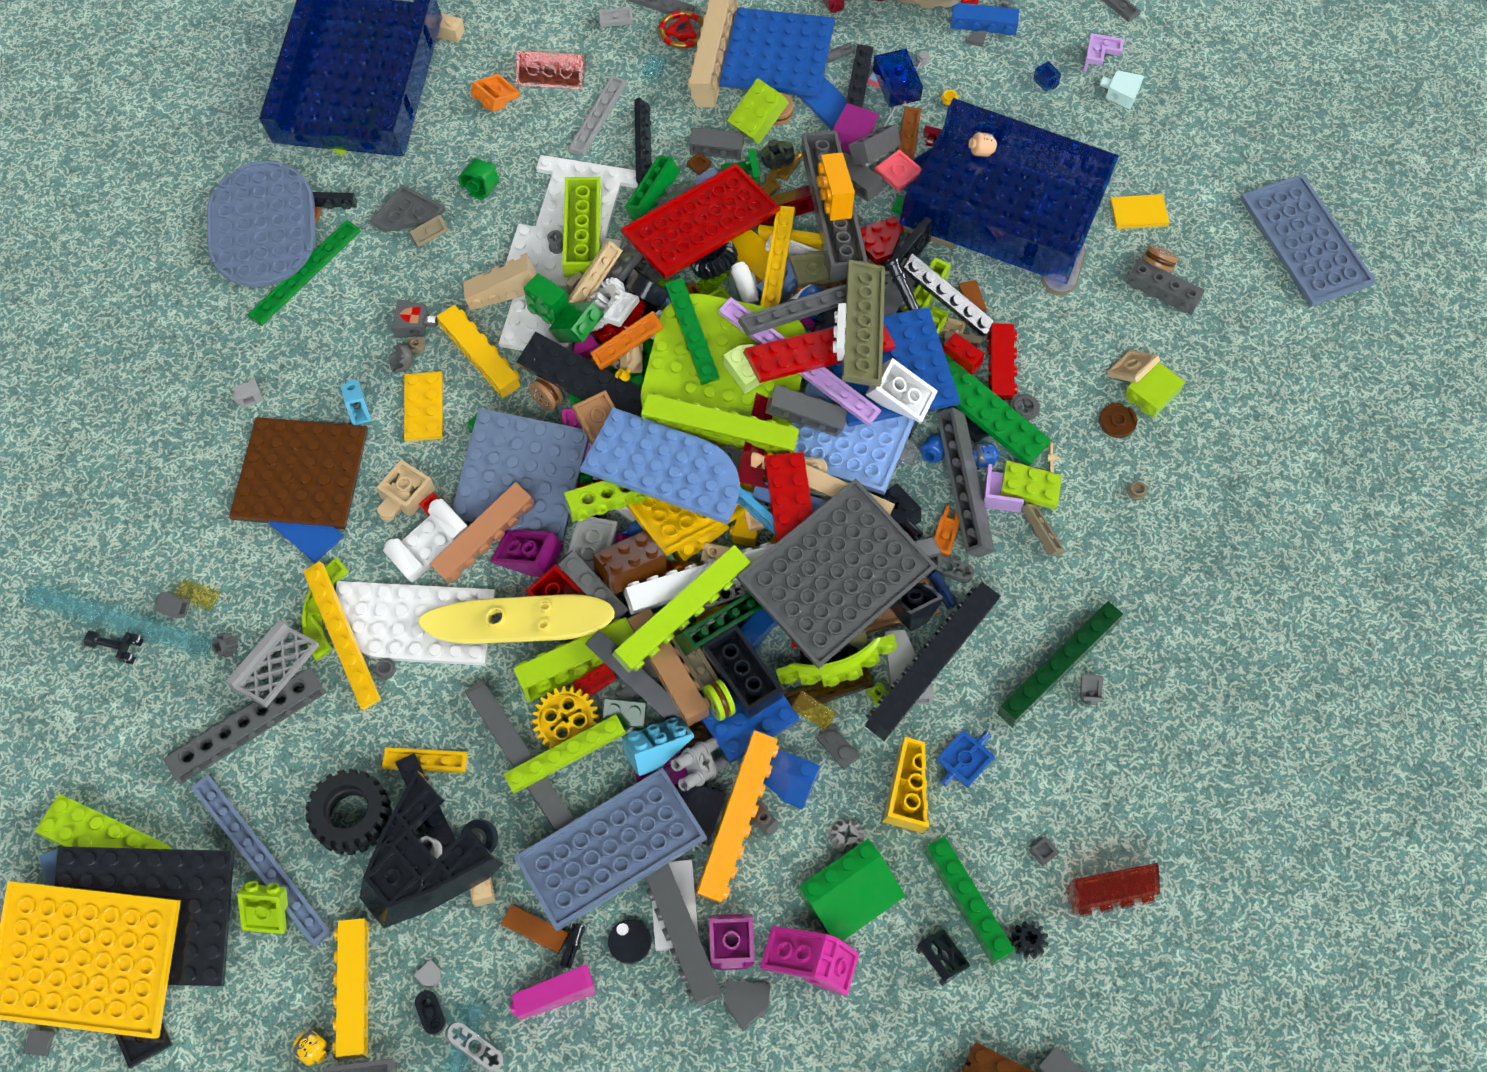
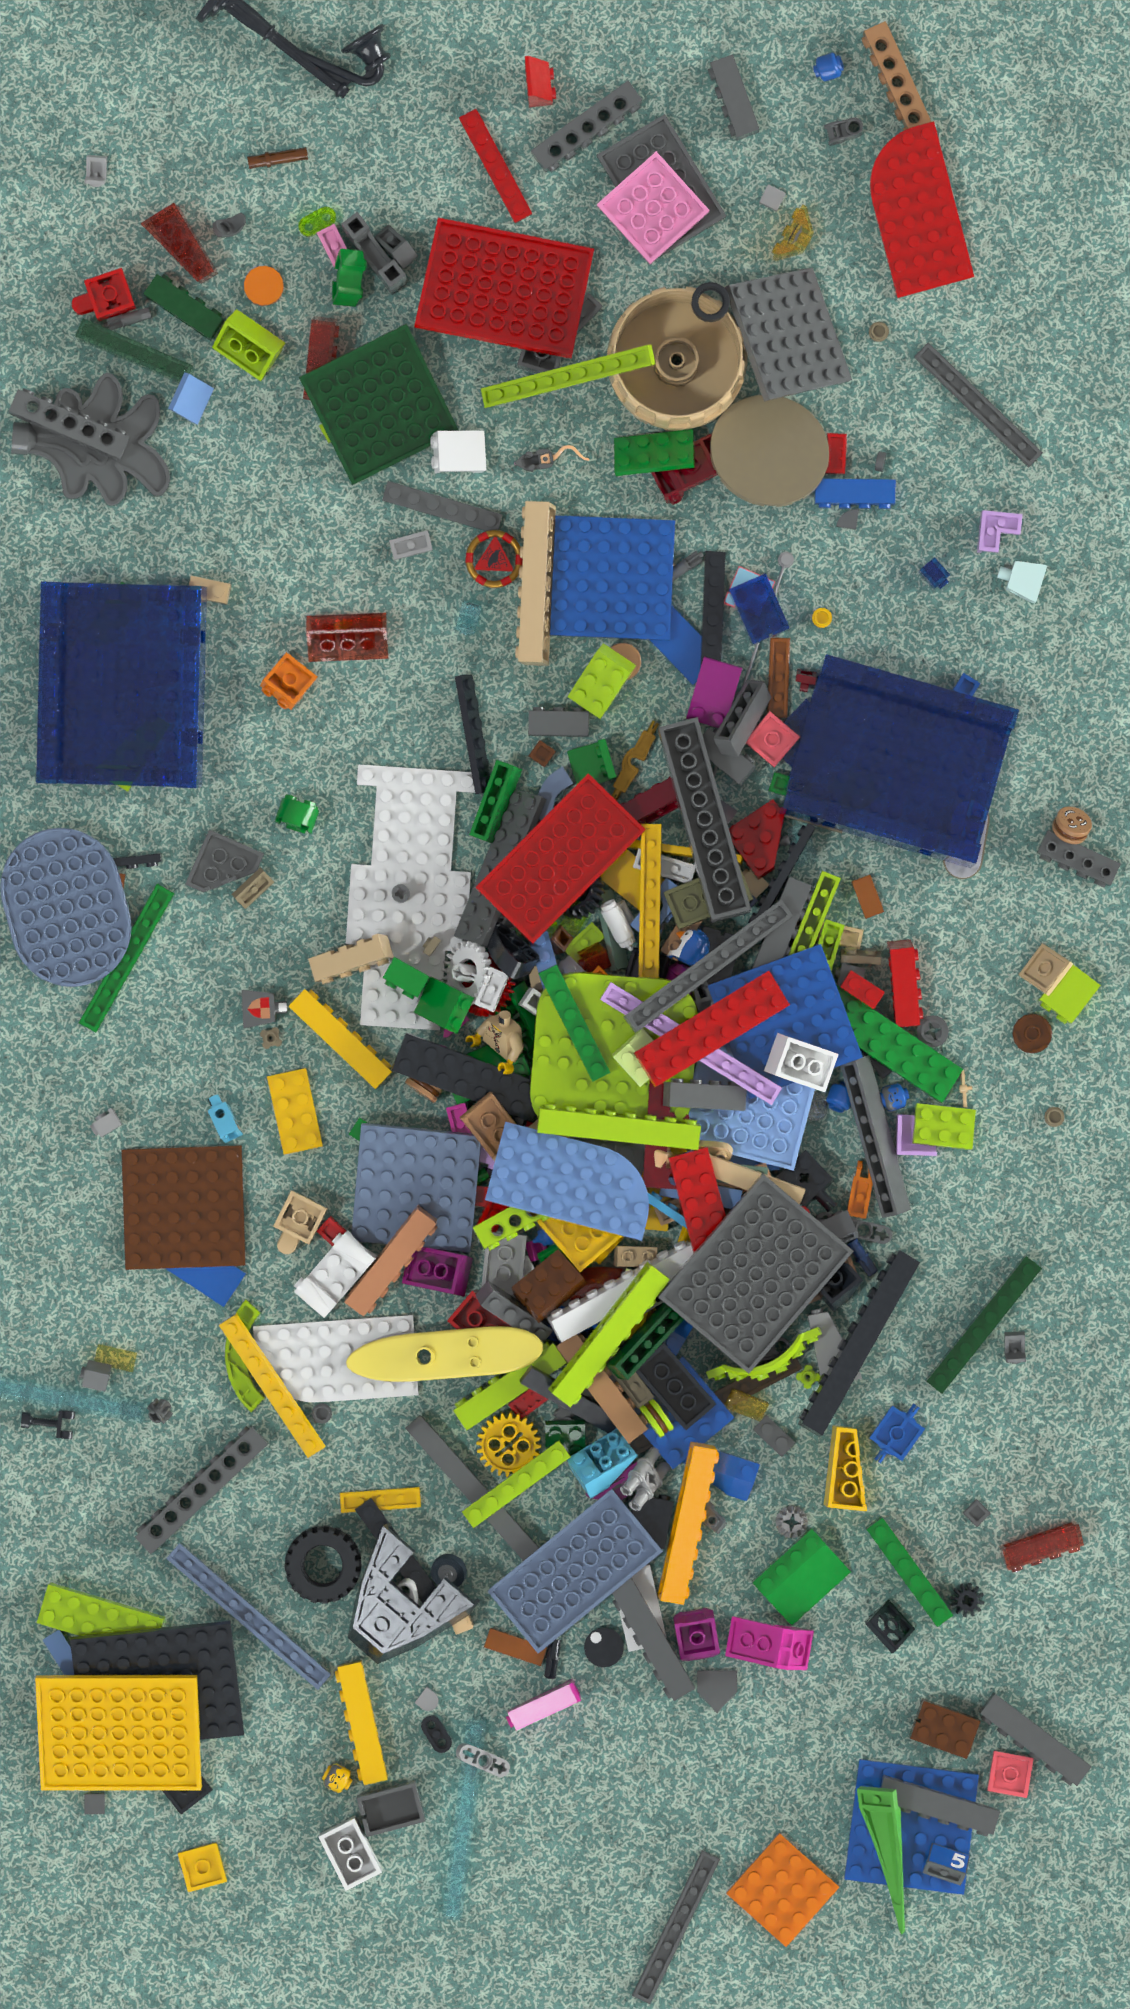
camera: 10 degrees left, 25 degrees up
(261, 657) = (199, 1419): light grey fence -> none
(263, 907) = (266, 1663): lime plate -> none
(401, 359) = (257, 1066): dark grey hair -> none
(581, 223) = (427, 872): lime brick -> none
(595, 273) = (453, 941): tan tile -> none
(597, 116) = (413, 695): light grey tile -> none
(627, 340) = (506, 1037): orange plate -> none
(784, 154) = (634, 740): black plate -> none
(835, 186) = (705, 820): light orange brick -> none
(839, 331) = (731, 1013): white plate -> none
(864, 324) = (754, 992): olive plate -> none
(899, 277) = (786, 919): black pin -> none
(947, 295) = (839, 916): plate -> none
(982, 144) = (864, 712): light nougat head -> none
(1043, 530) = (959, 1177): dark tan plate -> none
(1139, 211) = (1048, 754): yellow tile -> none

